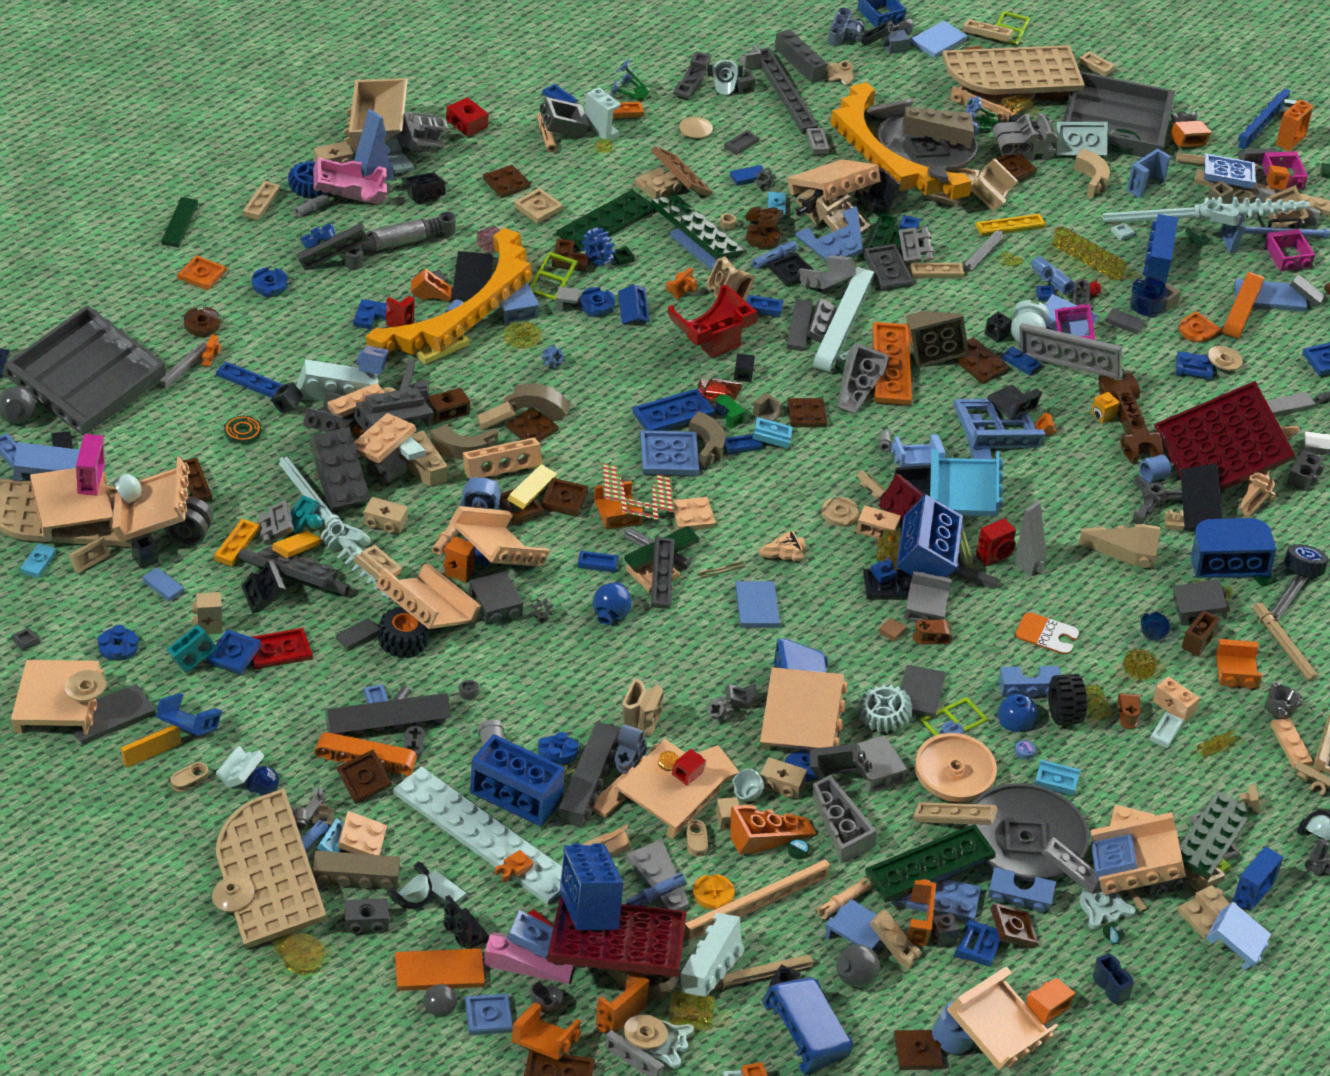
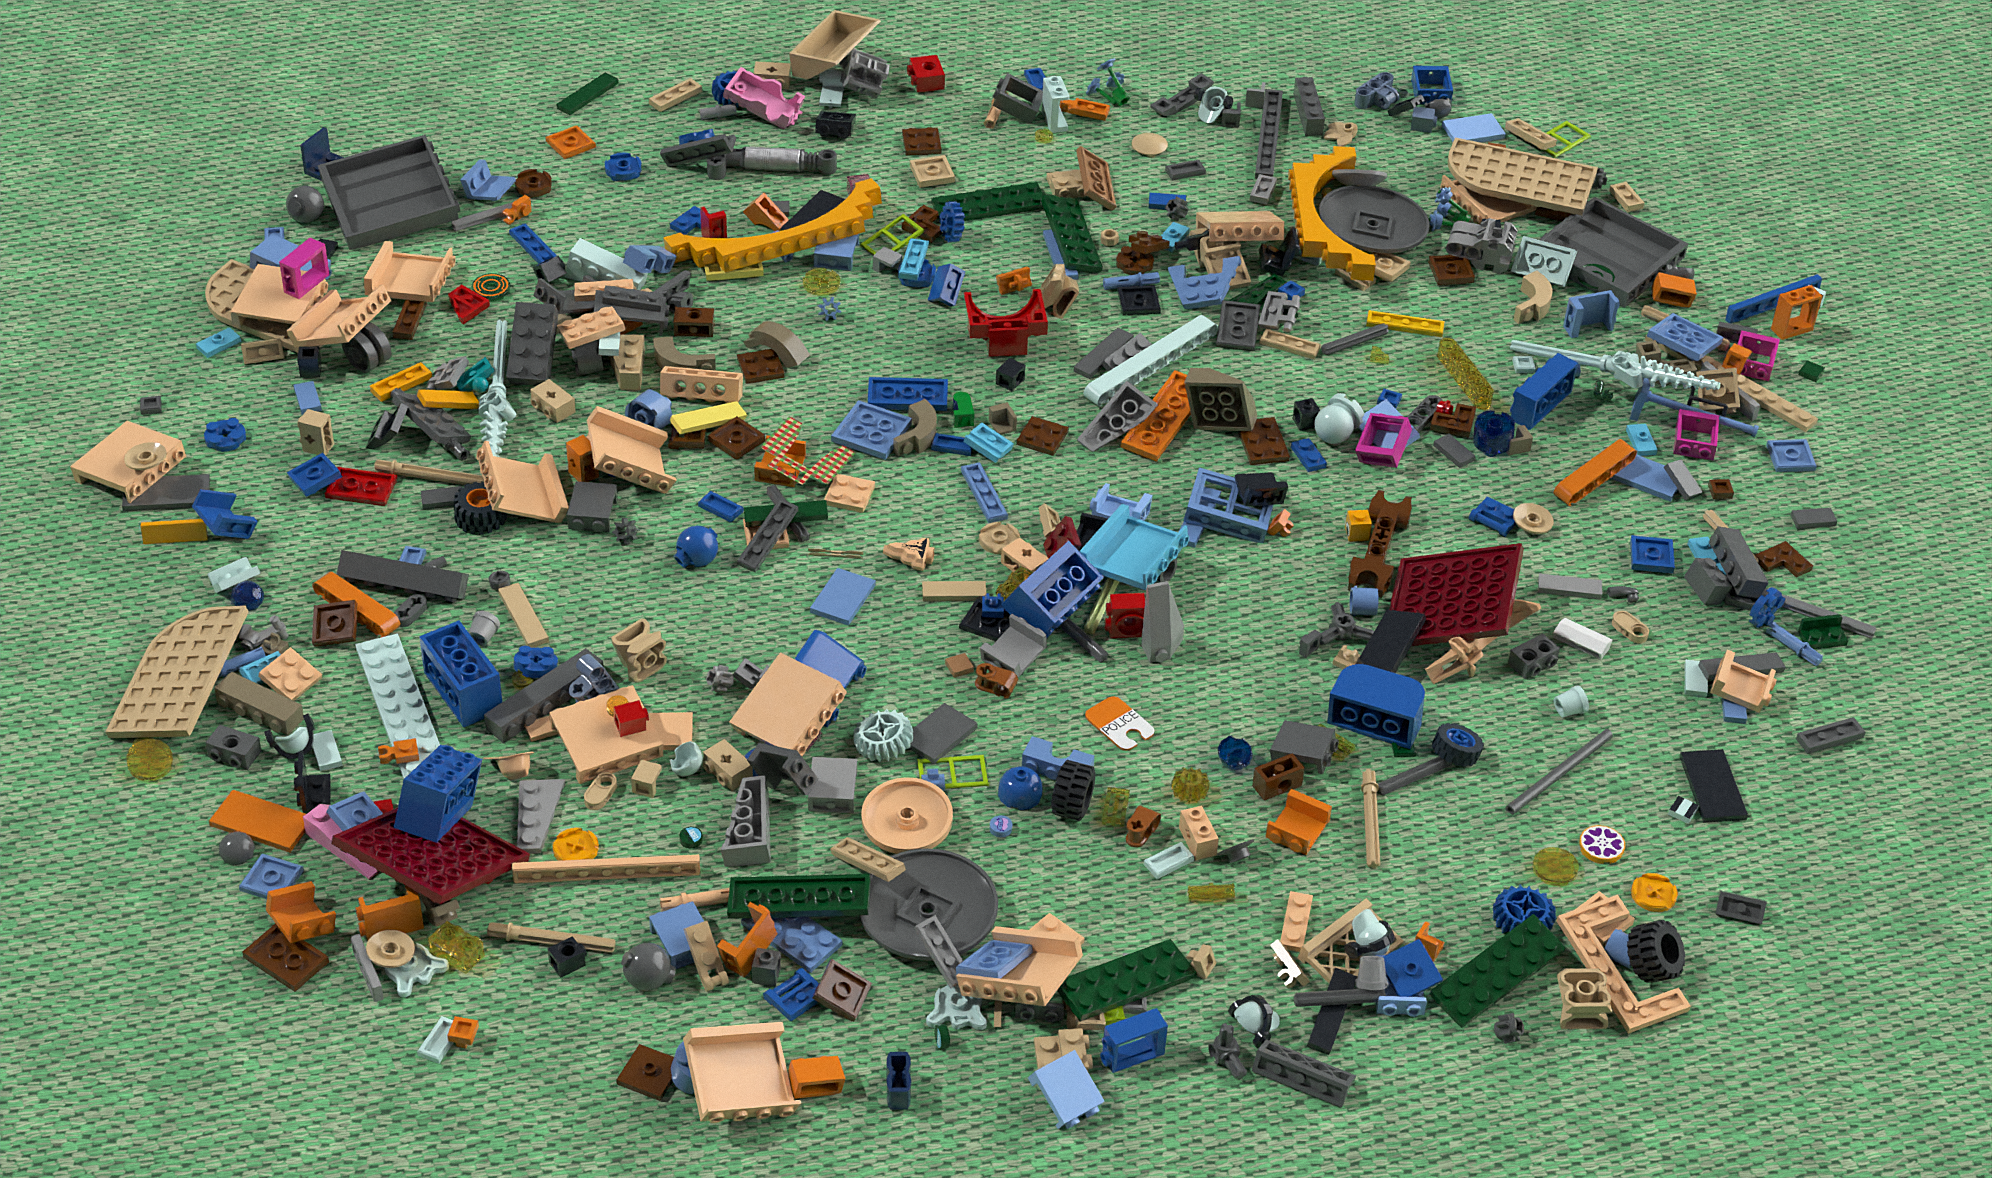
camera: 30 degrees right, 0 degrees up
(128, 487) = (328, 300): light aqua hair -> none
(161, 441) = (408, 274): none -> light nougat panel
(165, 337) = (481, 185): none -> medium blue bracket
(185, 779) = (183, 570): tan piece -> none
(189, 646) = (271, 454): teal brick -> none
(234, 900) = (132, 684): tan dish -> none
(235, 451) = (467, 303): none -> red wing
(329, 616) = (426, 472): none -> tan axle
(372, 147) = (801, 75): medium blue wedge -> none
(375, 560) = (498, 436): tan plate -> none
(496, 415) = (731, 344): tan tile -> none
(512, 713) = (523, 615): none -> tan tile
(541, 994) = (329, 877): dark grey hair -> none
(589, 290) = (913, 259): none -> medium azure tile
(623, 256) = (978, 239): dark green tile -> none
(658, 890) = (517, 823): medium blue axle -> none
(713, 956) = (508, 903): light aqua wedge -> none
(717, 387) = (959, 382): clear red panel -> none
(762, 830) = (667, 806): orange wedge -> none
(765, 305) = (1080, 324): blue plate -> none
(798, 477) = (984, 492): none -> medium blue tile
(809, 1022) = (548, 1001): windscreen -> none
(839, 269) = (1184, 312): light grey panel -> none
(840, 568) = (953, 590): none -> tan tile
(885, 441) = (1098, 484): light grey pin -> none
(939, 125) = (1392, 205): dark tan wedge -> none
(939, 173) = (1345, 248): dark grey tile -> none
(993, 184) = (1411, 278): tan panel -> none
(1015, 103) = (1501, 209): clear yellow tile -> none
(1037, 897) = (891, 971): medium blue arch -> none
(1052, 275) = (1406, 382): medium blue piece -> none
(1057, 777) = (1010, 865): medium azure plate -> none
(1071, 351) = (1355, 457): light grey tile -> none
(1111, 297) = (1457, 424): none -> reddish brown plate
(1132, 545) = (1275, 666): tan wedge -> none
(1197, 327) = (1531, 481): orange tile -> none
(1213, 703) = (1237, 852): none -> dark grey piece
(1248, 263) = (1641, 439): none -> medium azure plate
(1282, 701) = (1313, 874): dark grey hair -> none

